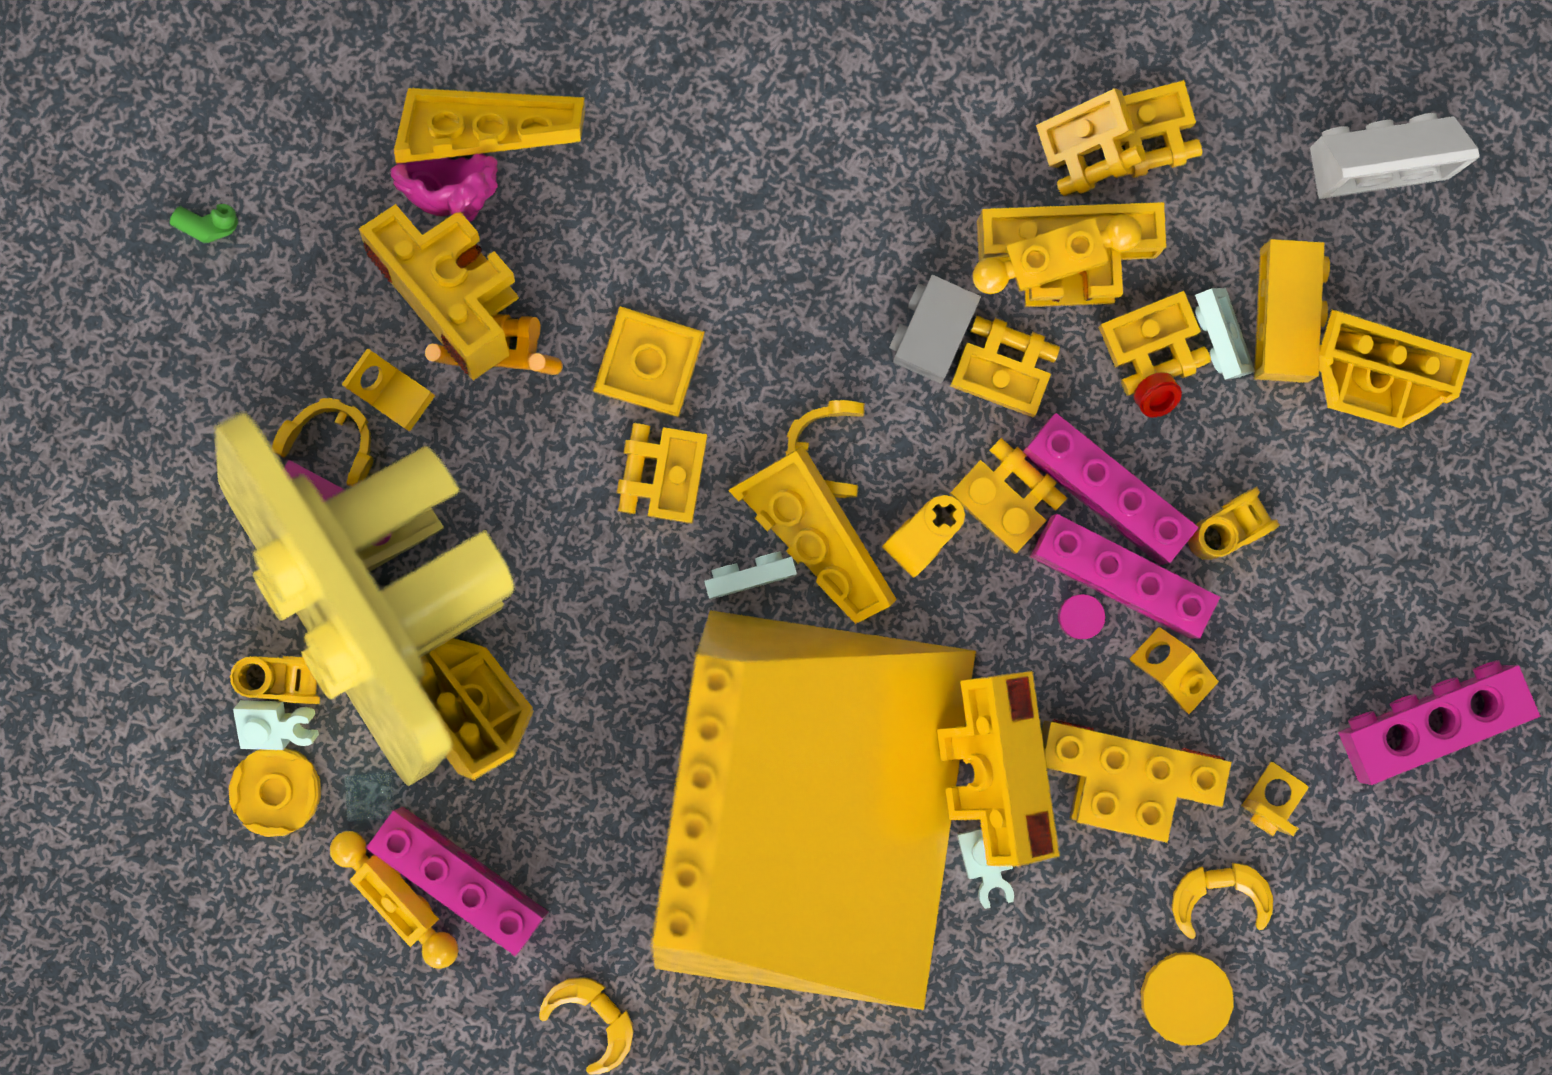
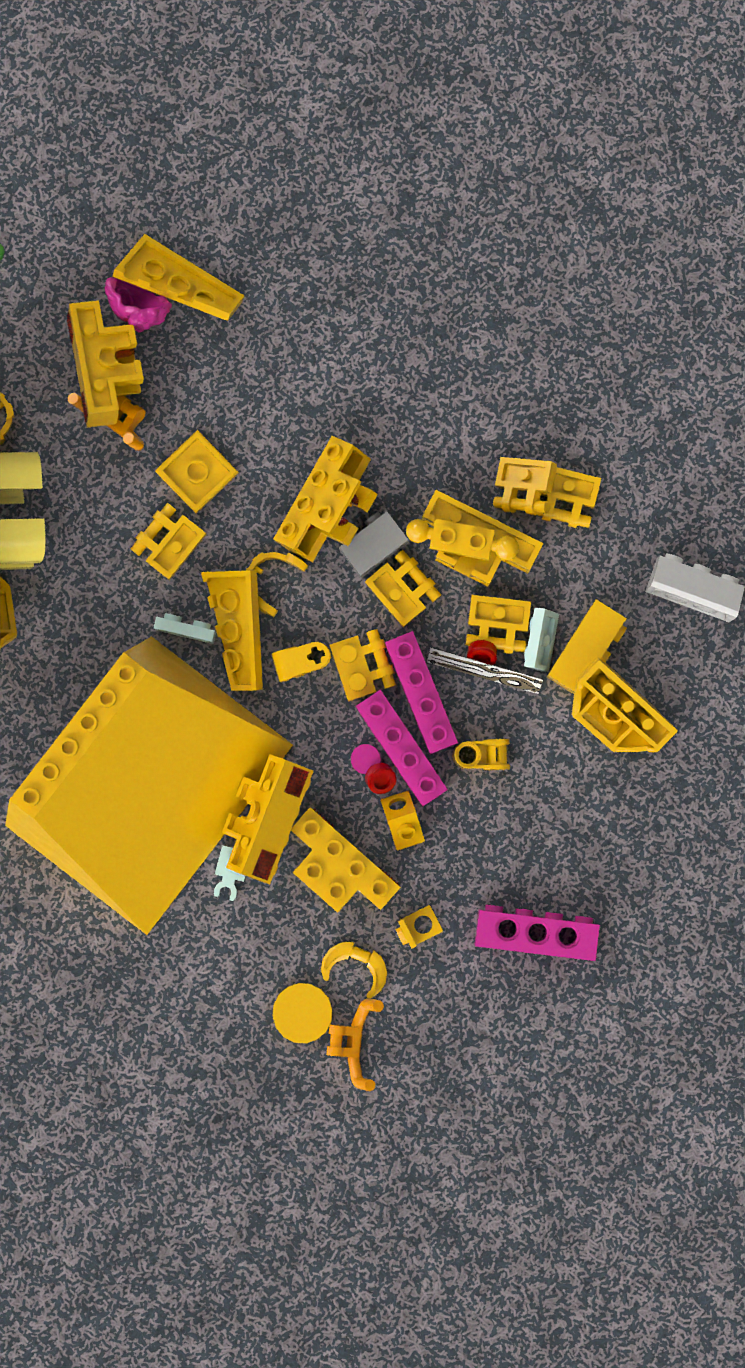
camera: 30 degrees right, 0 degrees up
(392, 392) = (36, 408): yellow bracket -> none
(845, 304) = (324, 499): none -> yellow piece
(1116, 631) = (380, 778): none -> red tile
(1172, 414) = (484, 670): none -> sticker
(1279, 1009) = (354, 1038): none -> light orange piece

